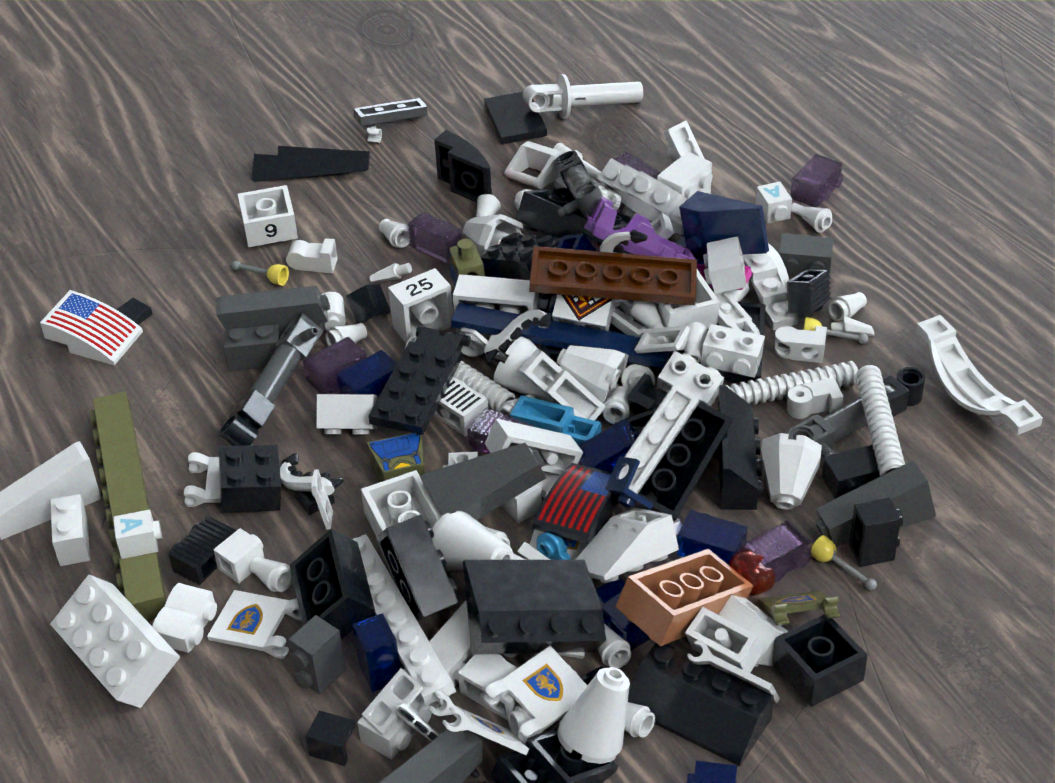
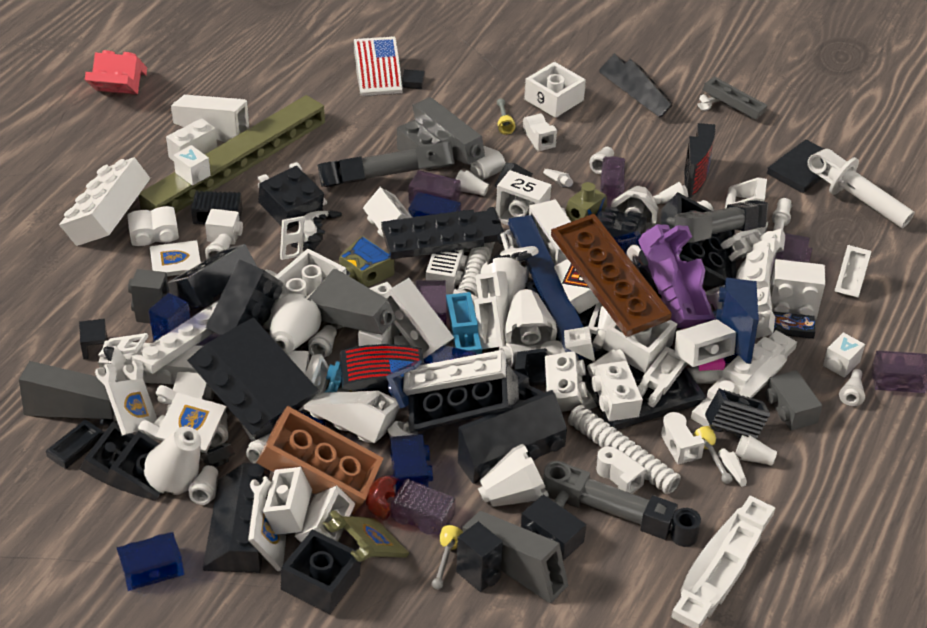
camera: 55 degrees right, 0 degrees up
(879, 419) = (603, 510): white piece -> none

